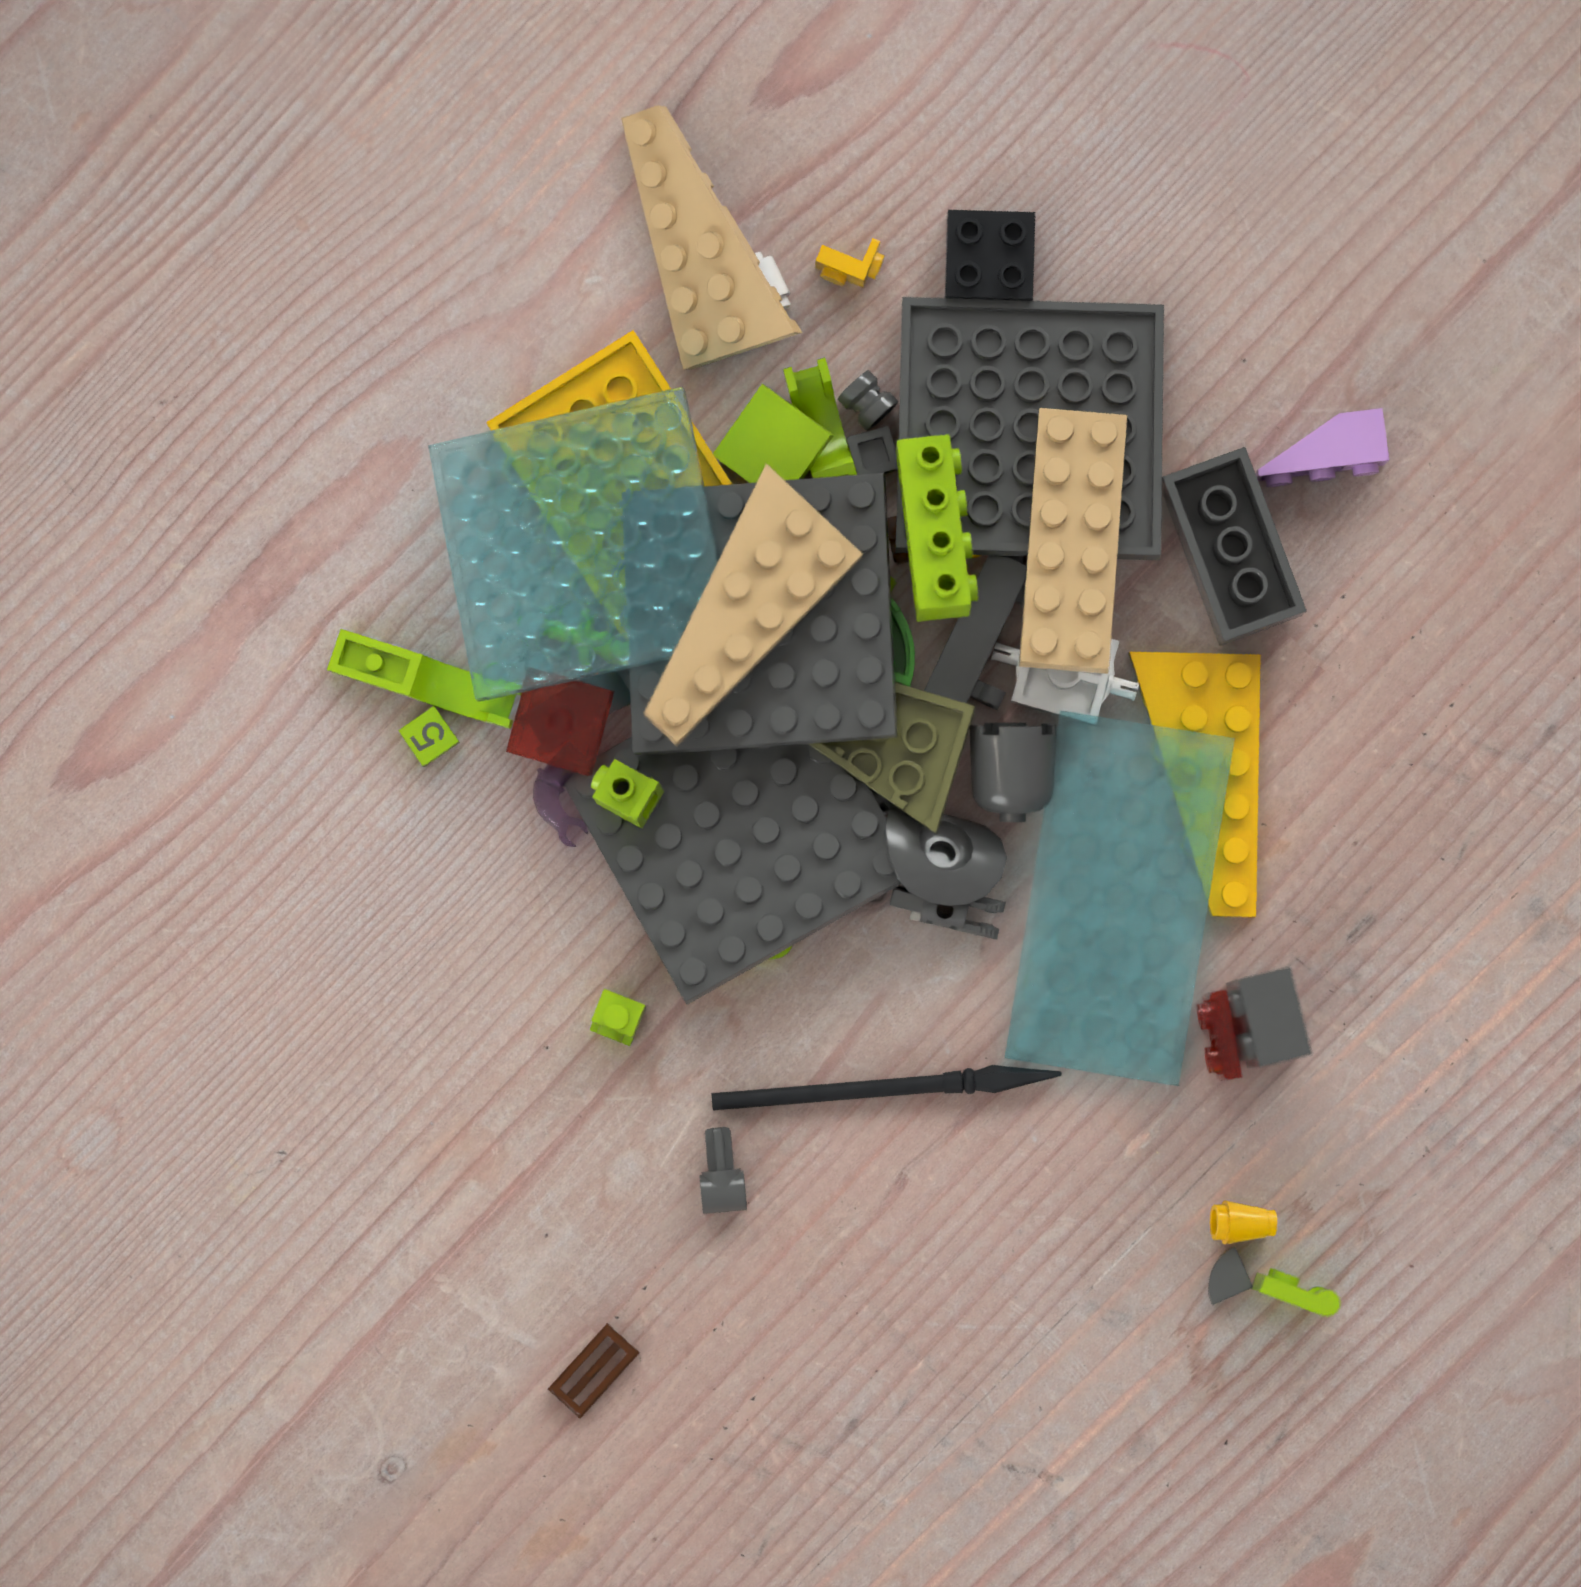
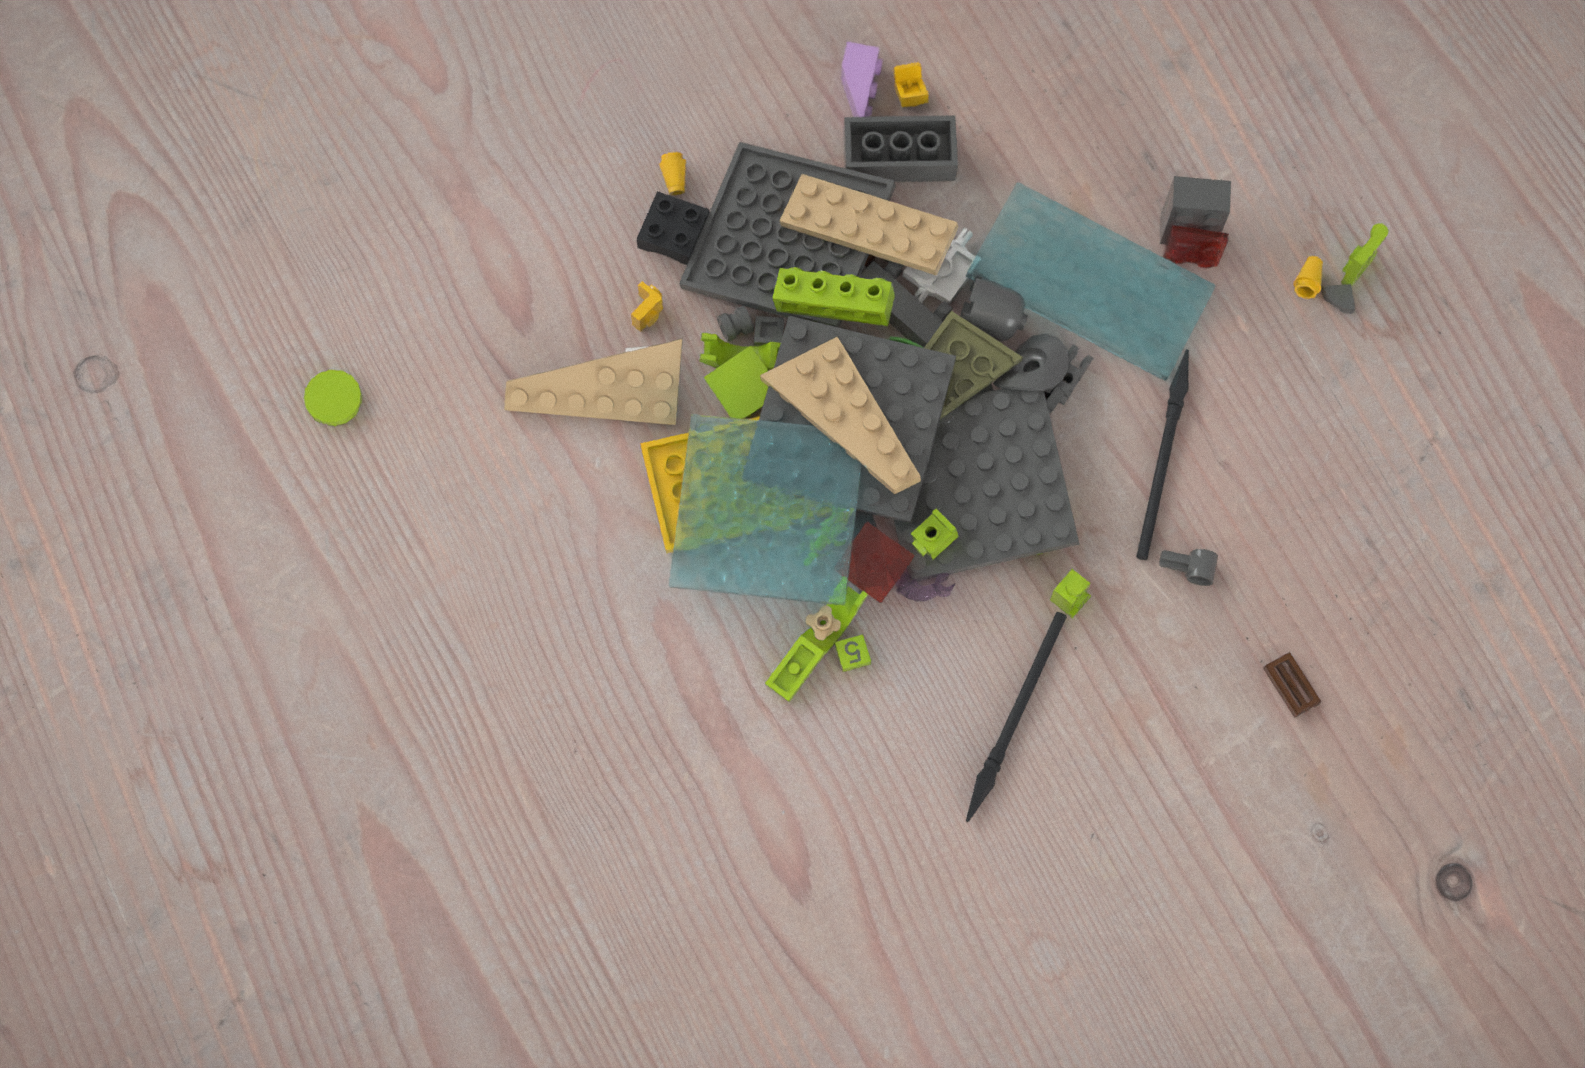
camera: 75 degrees left, 15 degrees down
(313, 981) = (986, 778): none -> black piece
(439, 680) = (822, 631): none -> tan plate
(1080, 226) = (674, 172): none -> yellow cone
(1217, 698) = (986, 189): yellow wing -> none
(1349, 528) = (910, 85): none -> yellow bracket

